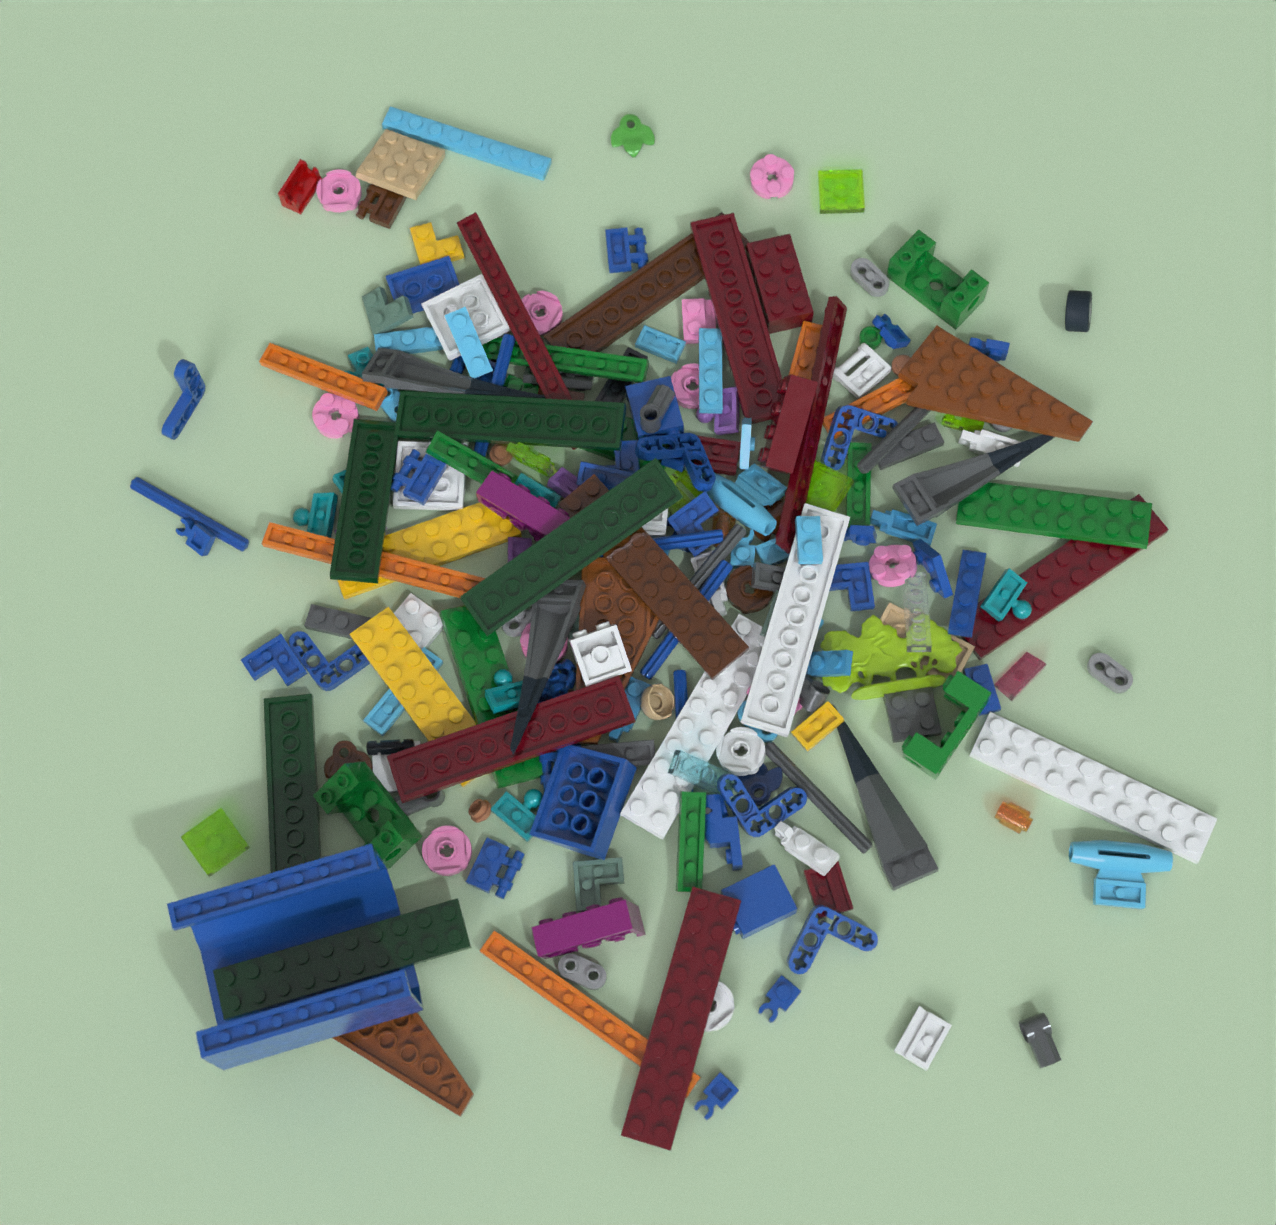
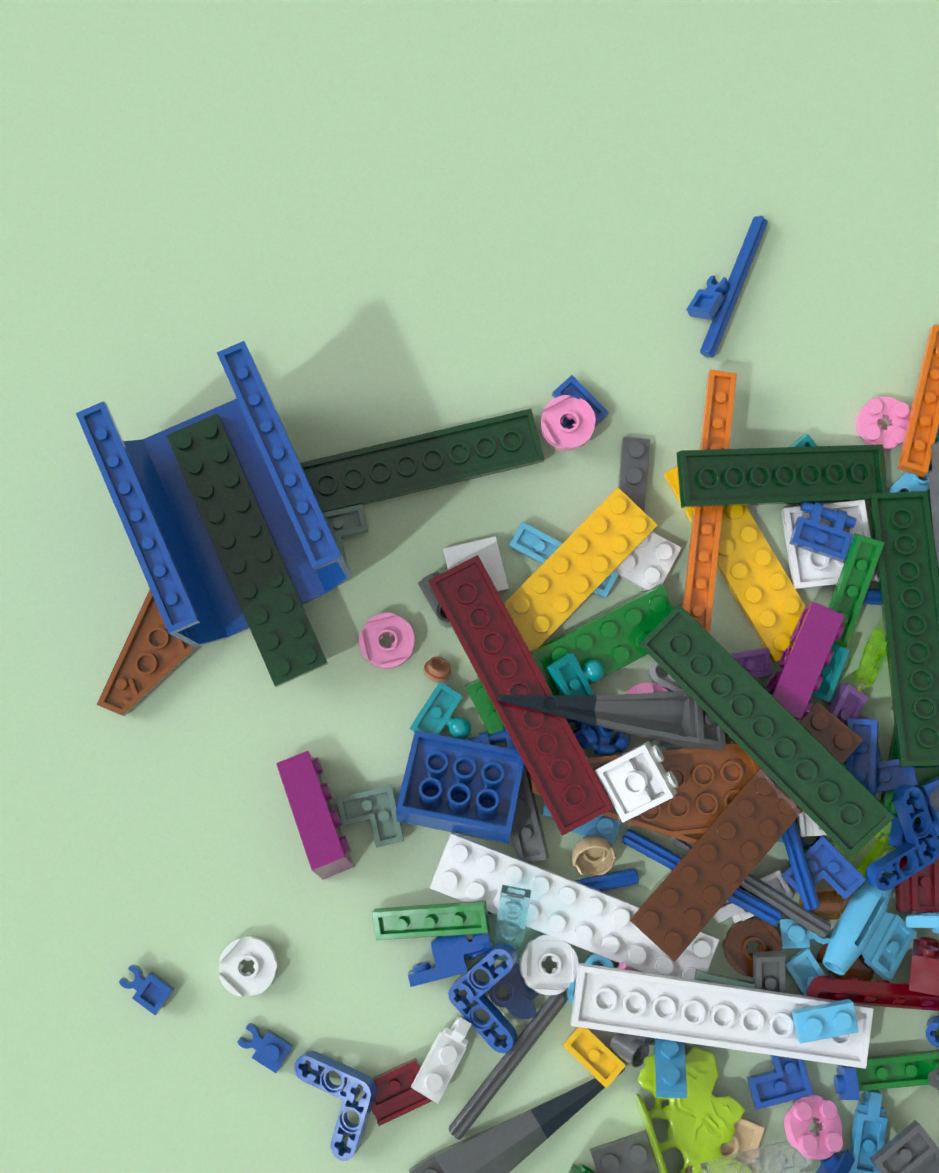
camera: 75 degrees right, 10 degrees up
(193, 391) = (878, 259): blue beam -> none
(215, 842) = (365, 389): clear neon green plate -> none
(272, 662) = (572, 408): none -> bright pink plate
(322, 514) = (757, 430): teal plate -> none
(324, 667) = (579, 468): blue beam -> none
(336, 761) = (467, 513): reddish brown plate -> none
(356, 793) = (434, 531): green plate -> none
(388, 746) = (495, 557): black axle -> none
(488, 864) = (377, 689): blue plate -> none
(499, 454) = (868, 620): nougat plate -> none
(568, 999) = (221, 832): orange plate -> none
(581, 972) = (270, 814): light grey plate -> none
(681, 1019) = (227, 939): dark red plate -> none
(763, 901) = (372, 1009): blue brick -> none
(827, 487) = (901, 1031): clear neon green plate -> none

